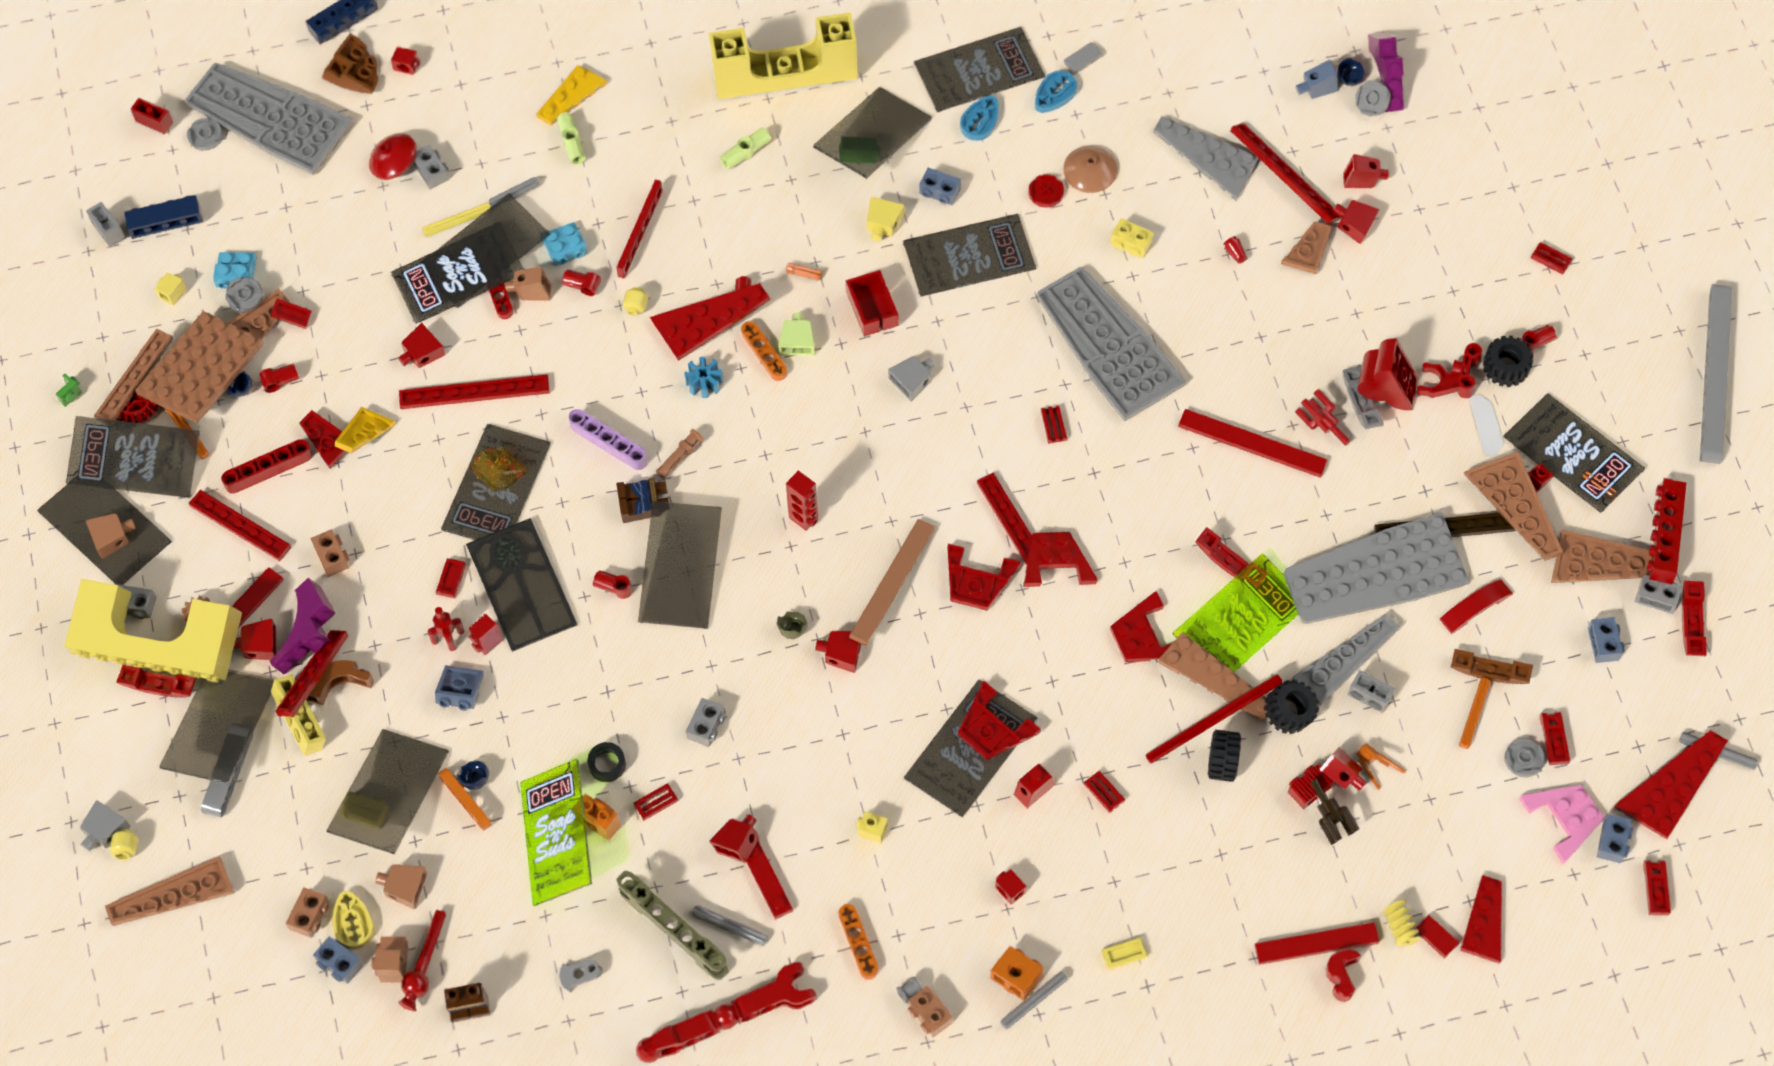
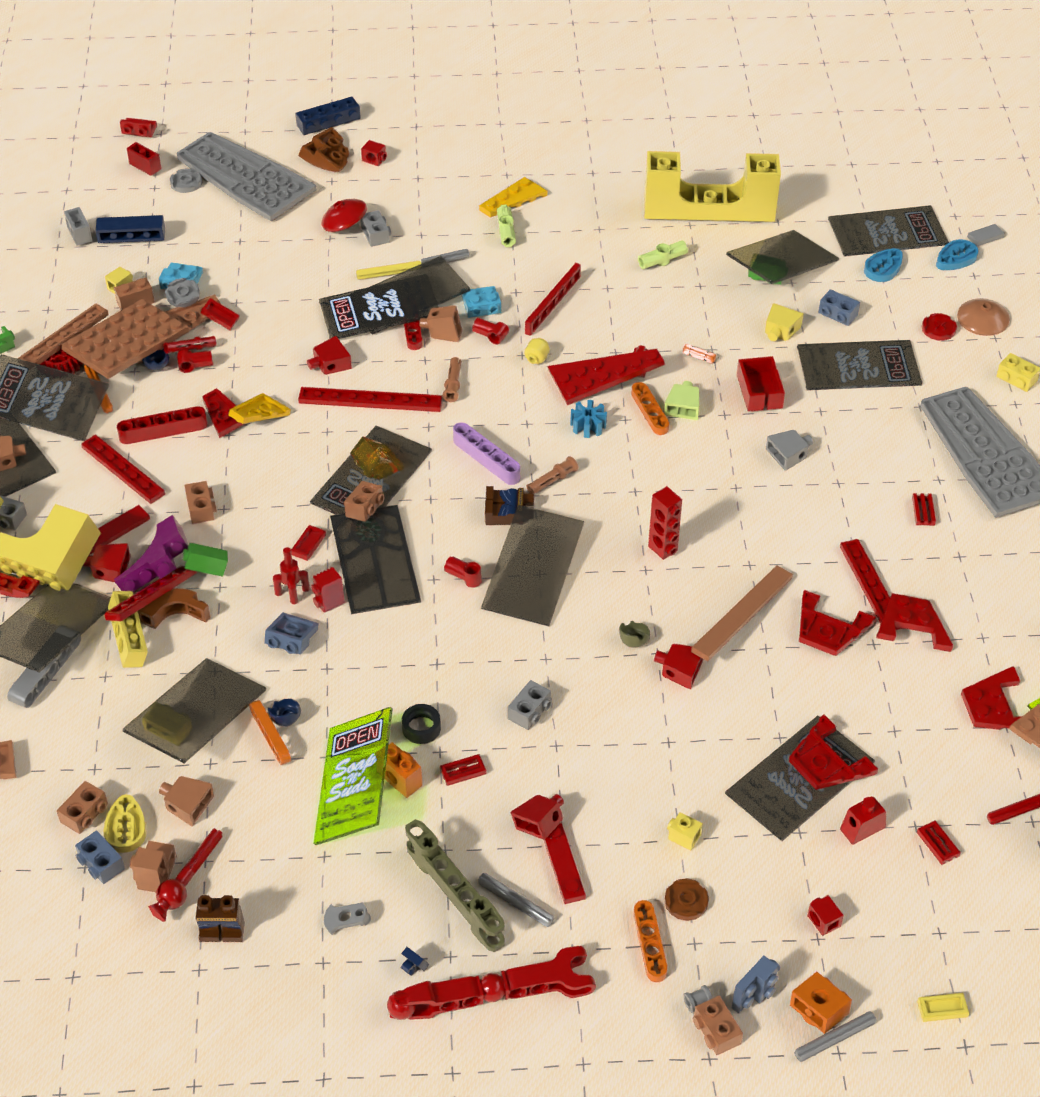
camera: 10 degrees right, 15 degrees down
(132, 68) = (138, 127): none -> red bracket
(191, 304) = (132, 292): none -> nougat brick
(275, 357) = (190, 344): none -> red pin
(355, 622) = (205, 559): none -> bright green brick
(497, 523) = (363, 501): none -> nougat brick
(555, 358) = (452, 384): none -> nougat pin
(650, 1004) = (413, 961): none -> dark blue tile
(884, 894) = (686, 899): none -> dark orange tile
(960, 966) = (756, 984): none -> sand blue plate

